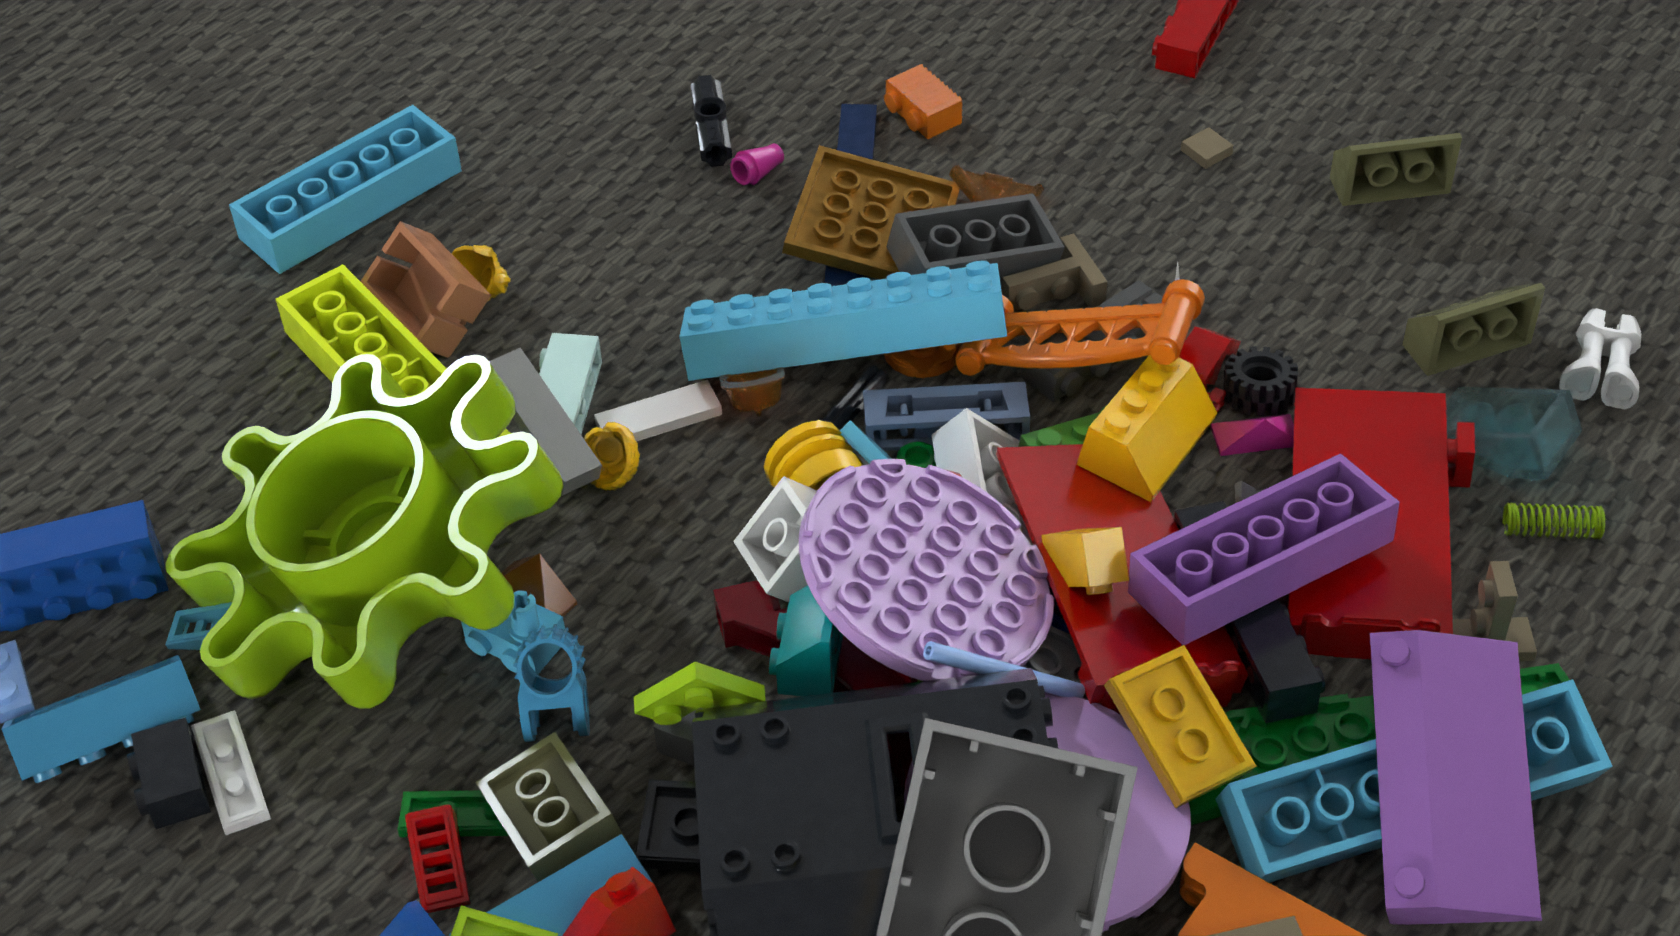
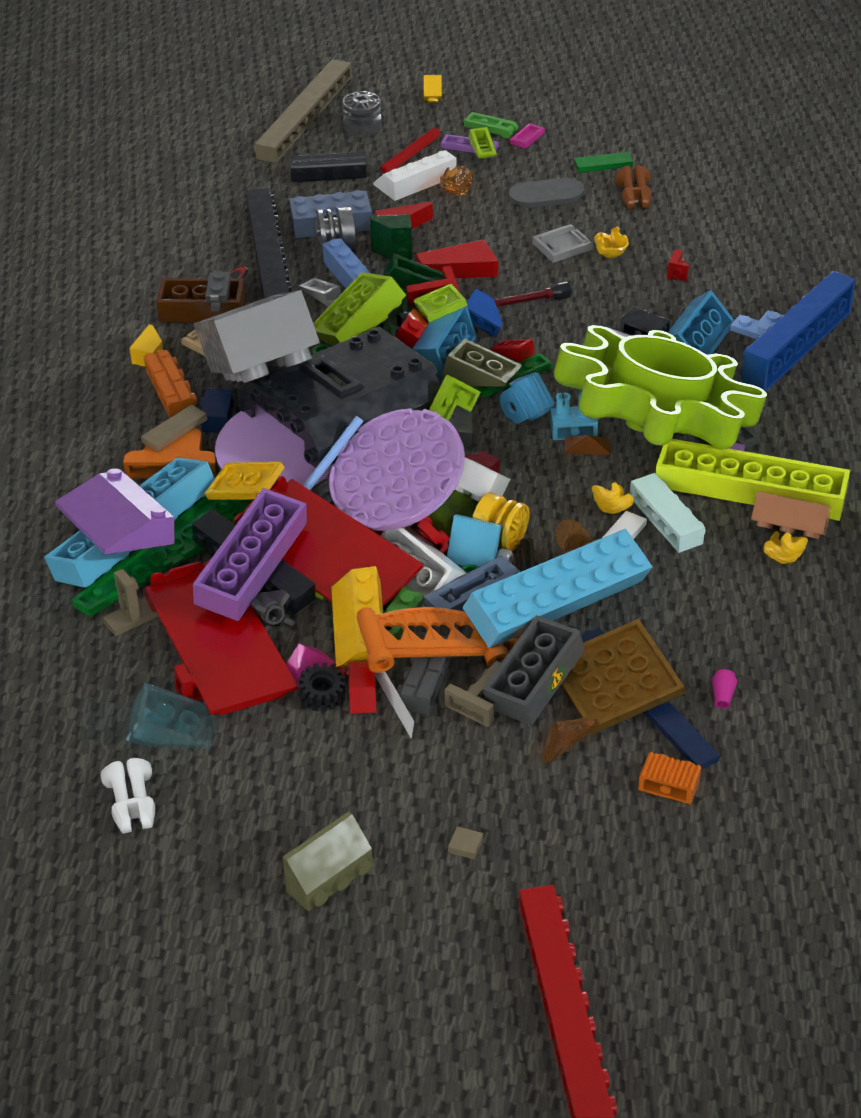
camera: 145 degrees right, 5 degrees down
(545, 419) = (657, 477): light grey slope -> none
(711, 121) = (781, 700): black piece -> none
(1089, 557) = (335, 519): yellow slope -> none
(1474, 328) = (216, 766): olive slope -> none
(1512, 518) = (144, 676): lime piece -> none

